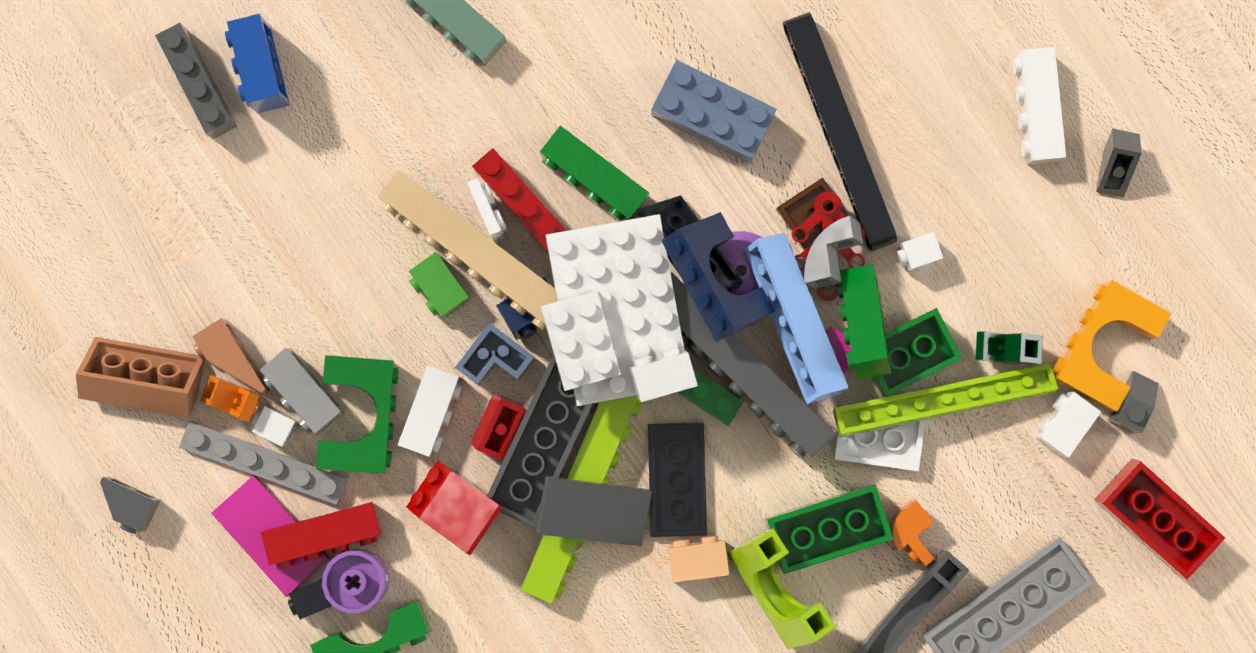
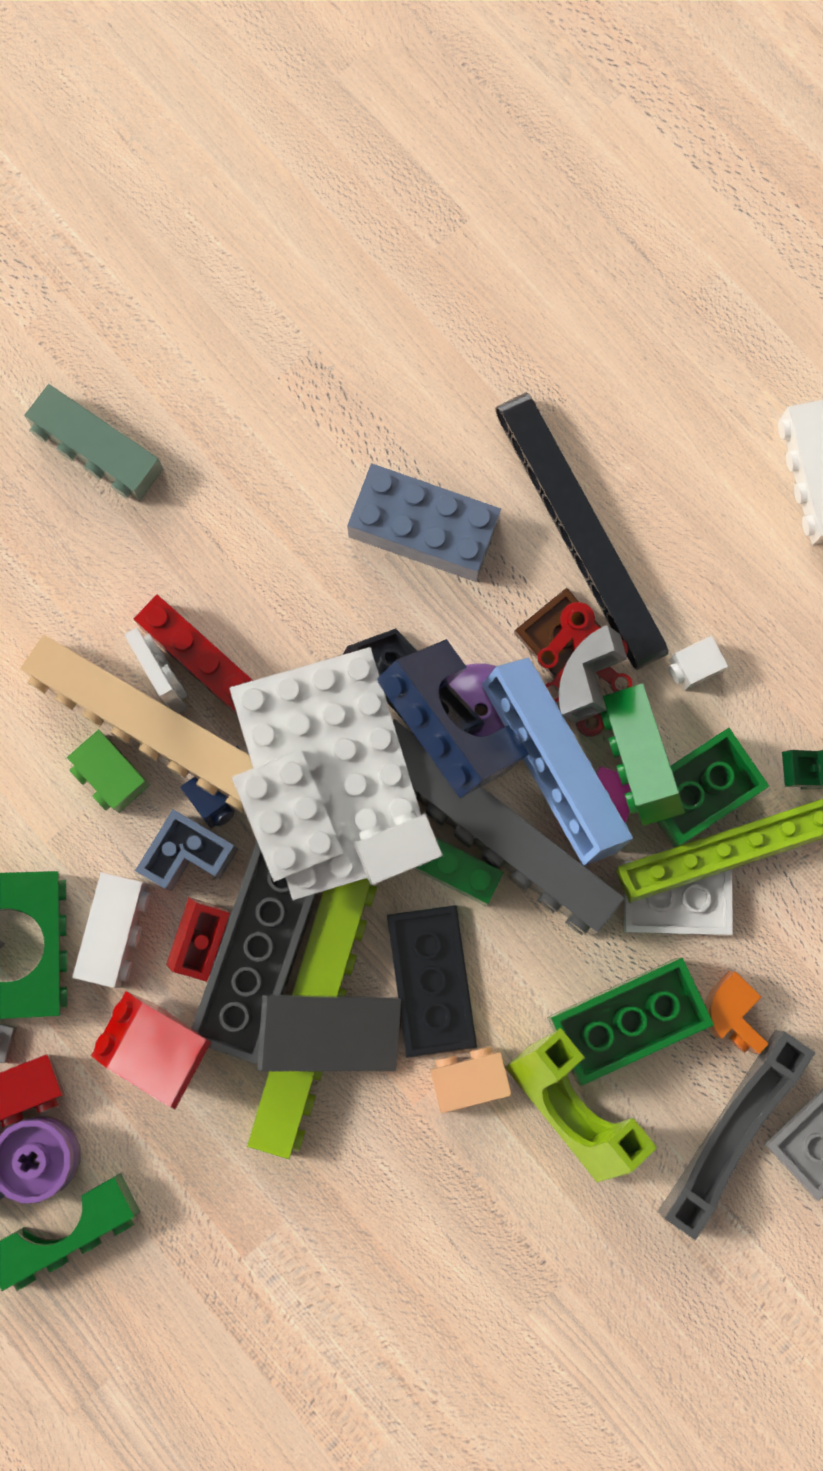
camera: 10 degrees left, 5 degrees down
(594, 174) = (284, 613): green brick -> none

